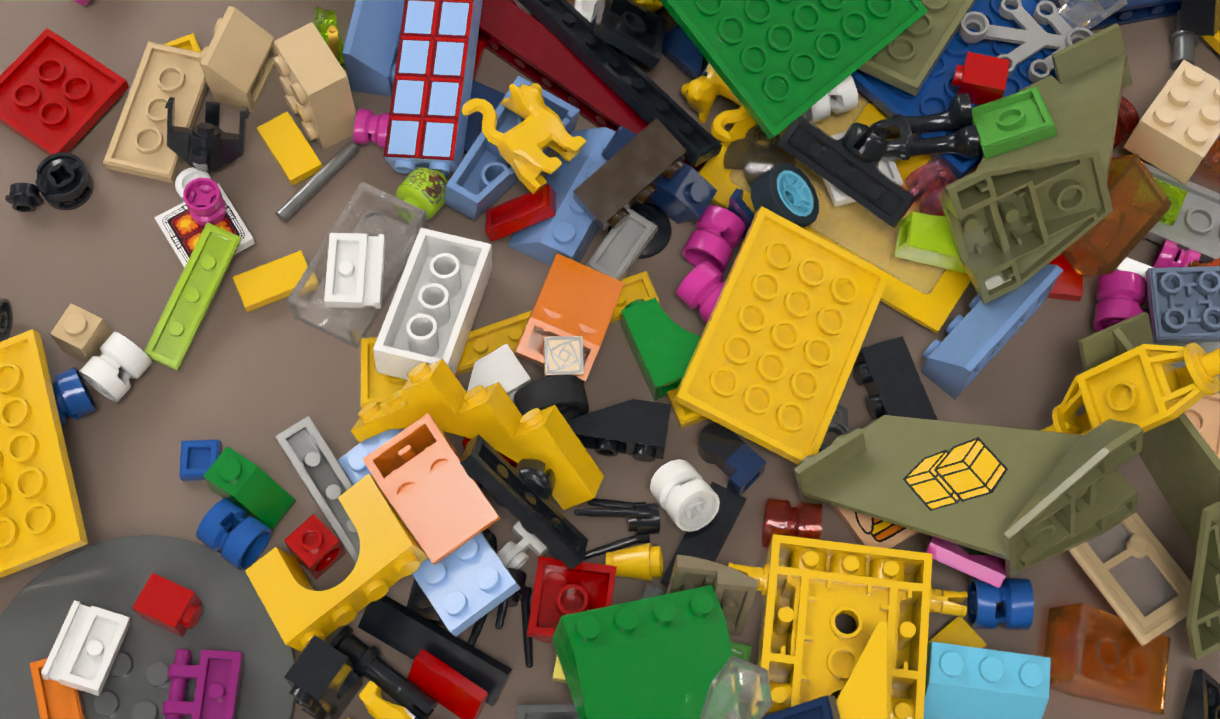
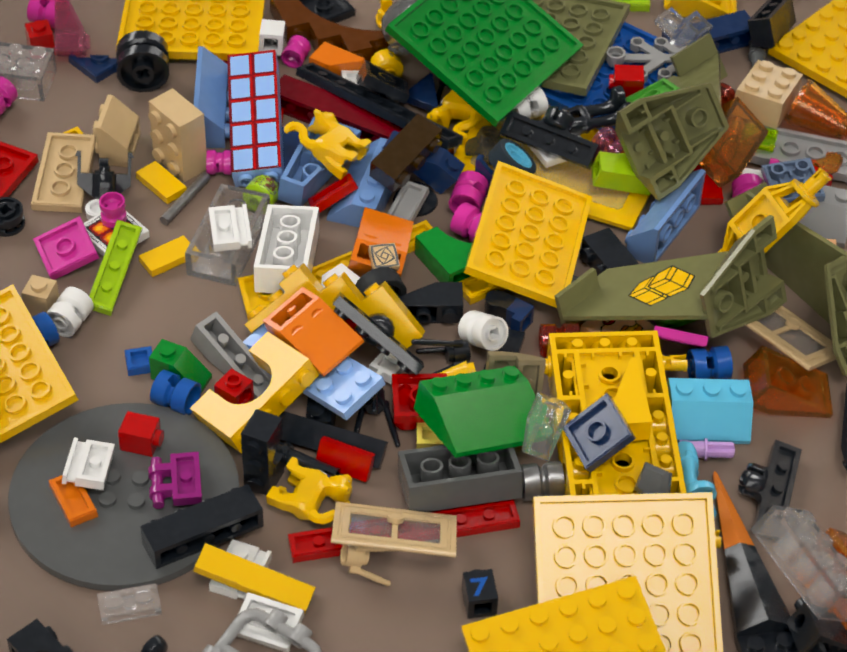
camera: 10 degrees left, 20 degrees down
(134, 251) = (66, 248): none -> dark pink tile

